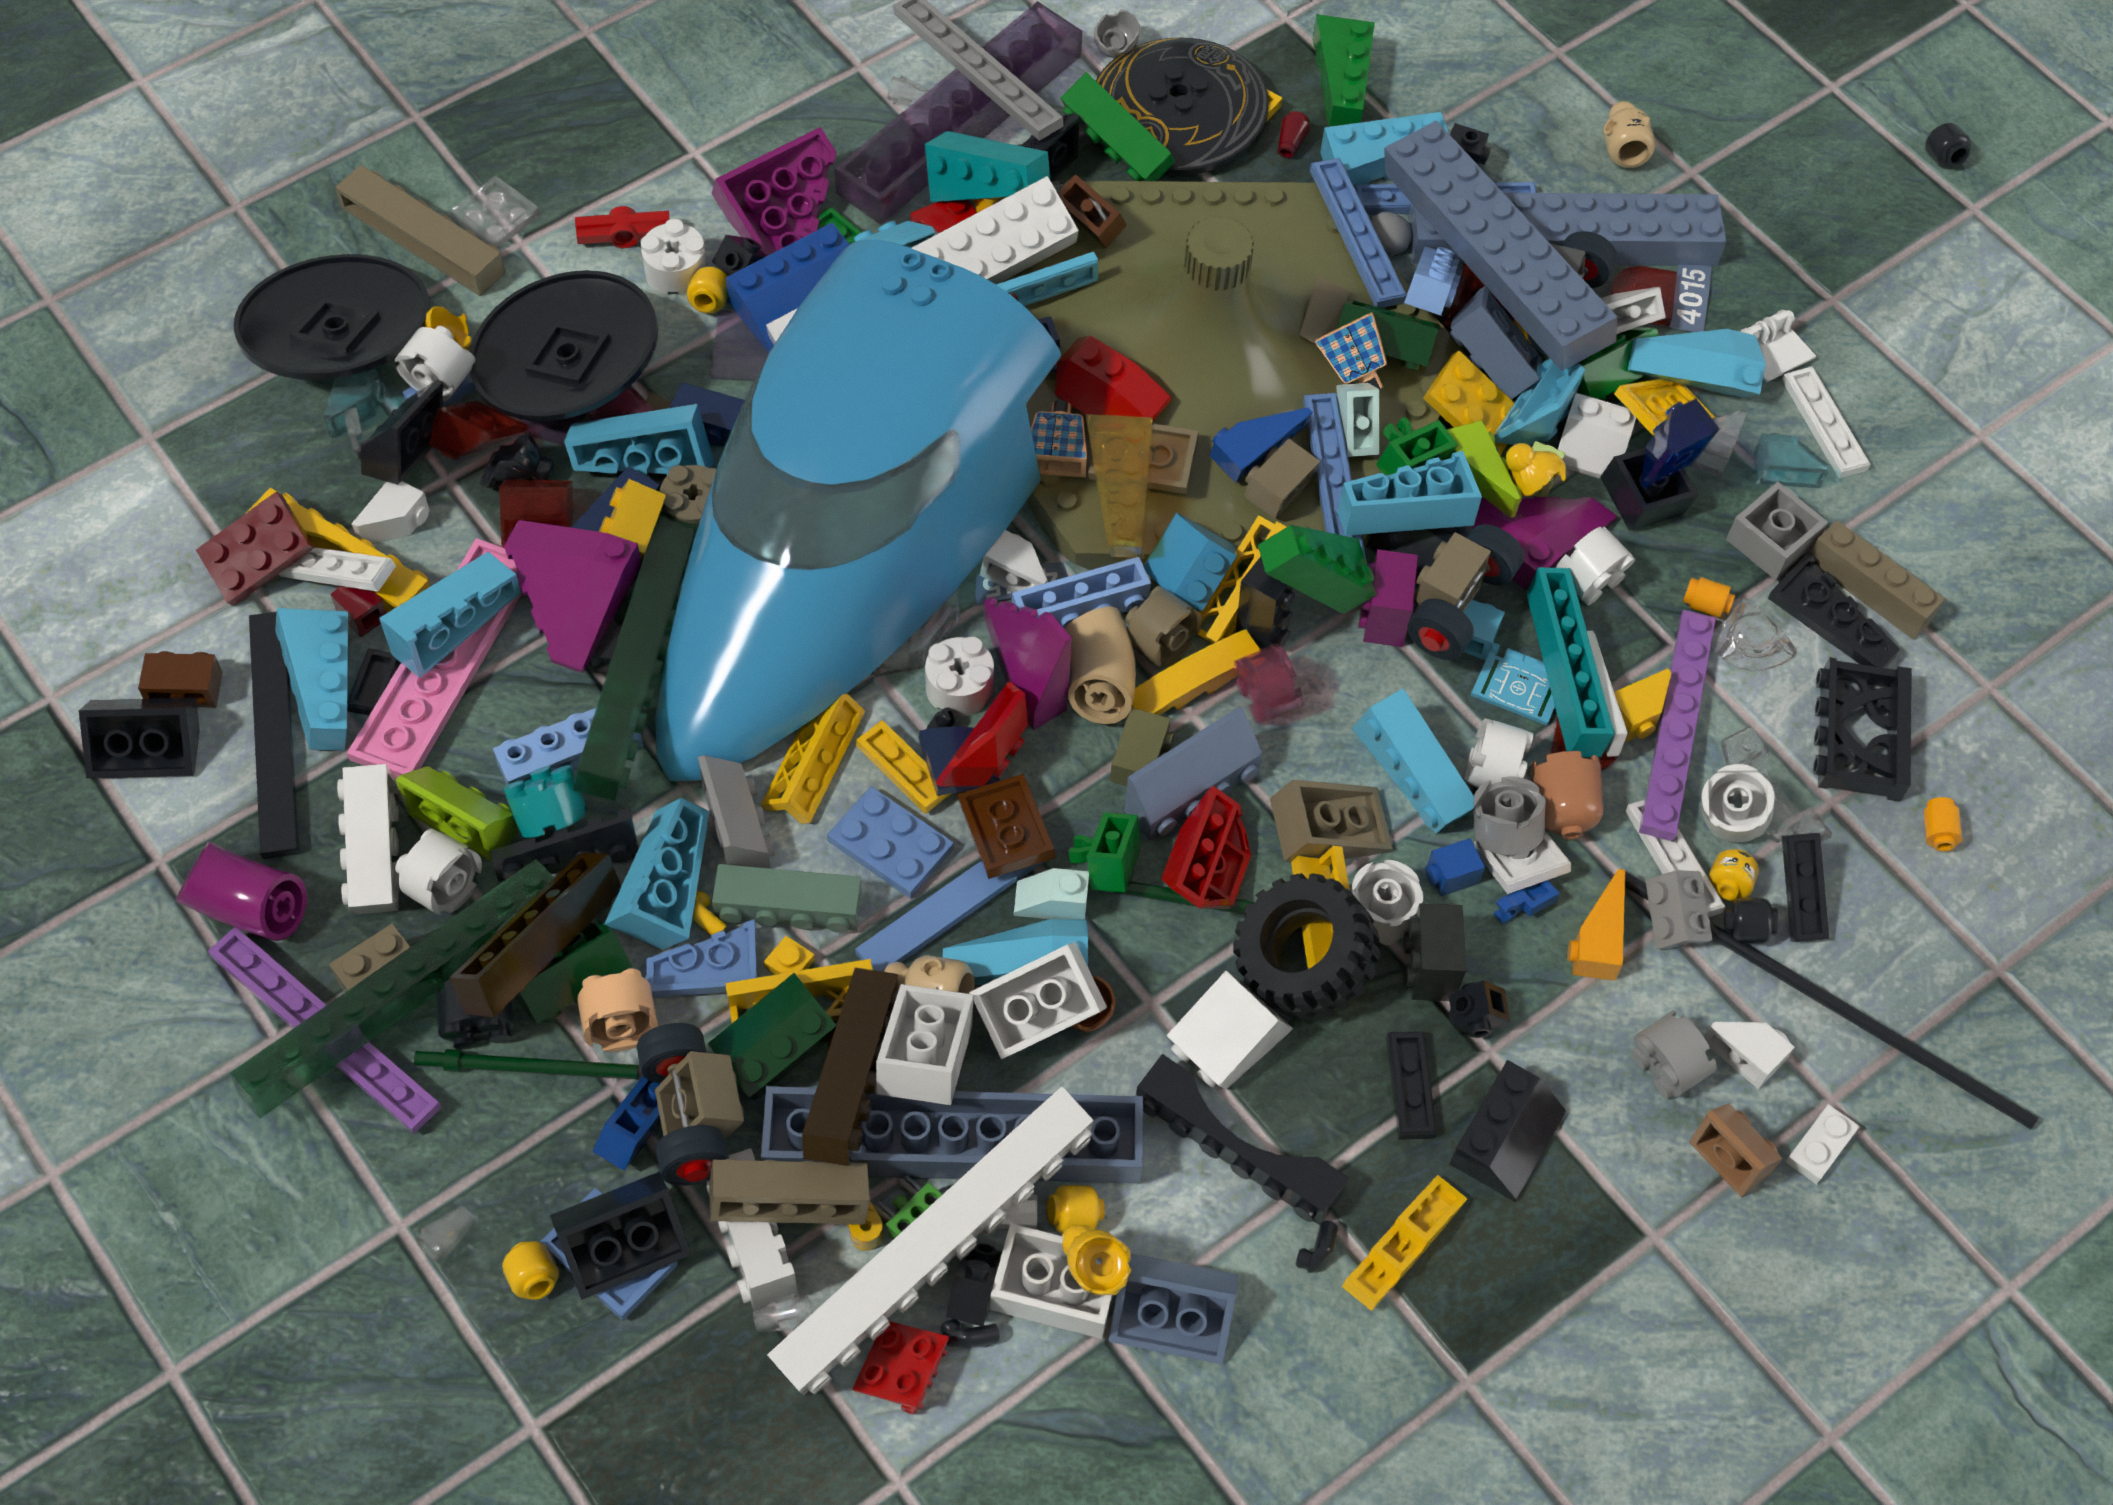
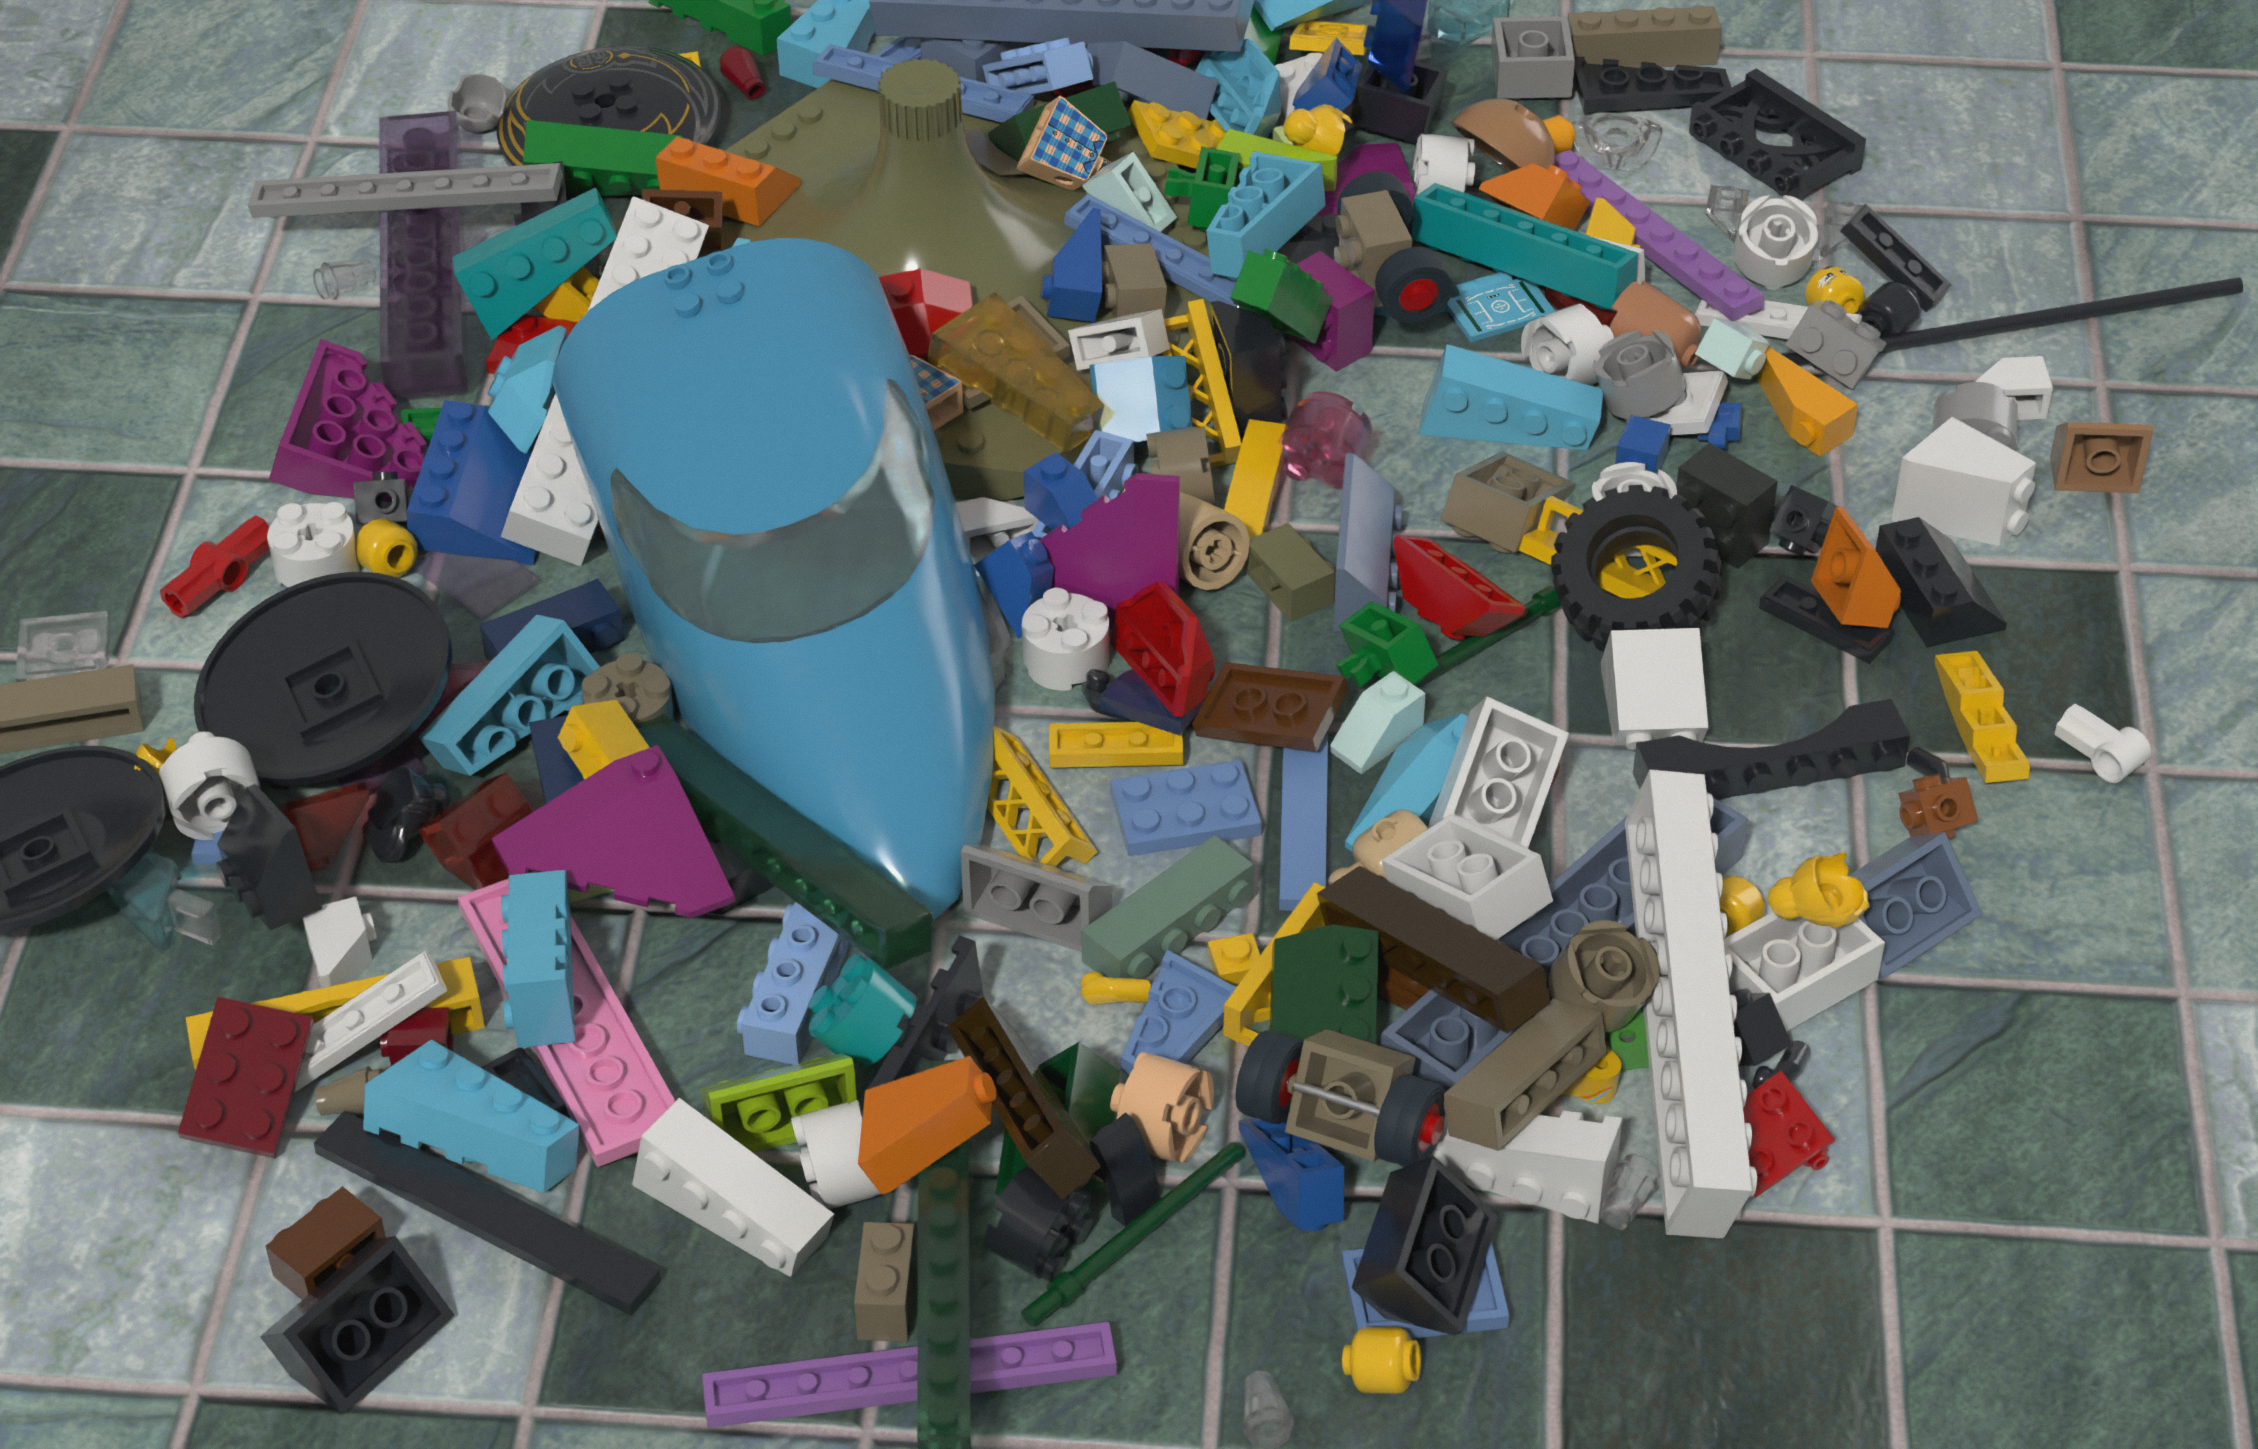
camera: 45 degrees left, 15 degrees down
(244, 893) = (664, 1338): magenta brick -> none
(294, 599) = (345, 1093): none -> dark tan cone
(463, 897) = (921, 1120): none -> orange slope
(550, 1025) = (1125, 1168): none -> black slope
(663, 878) = (1049, 980): medium azure wedge -> none
(903, 1157) = (1605, 972): none -> dark tan brick
(972, 612) = (1017, 576): none -> blue slope
(1046, 582) = (1056, 492): none -> blue slope
(1154, 201) = (748, 187): none -> orange slope
(1218, 511) = (1119, 339): none -> white slope
(1279, 1272) = (1937, 805): none -> dark orange brick
(1446, 1079) = (1854, 576): none -> orange slope
(1448, 1346) = (2111, 751): none -> white piece
(1597, 852) = (1733, 348): none -> light aqua slope
(1600, 440) = (1331, 80): none -> blue slope
(1605, 1083) = (1965, 485): none -> white slope
(1624, 640) = (1539, 193): none -> orange slope
(1655, 580) = (1506, 133): none -> medium nougat piece
(1822, 1144) = (2137, 404): white plate -> none
(1942, 824) = (1915, 153): light orange brick -> none

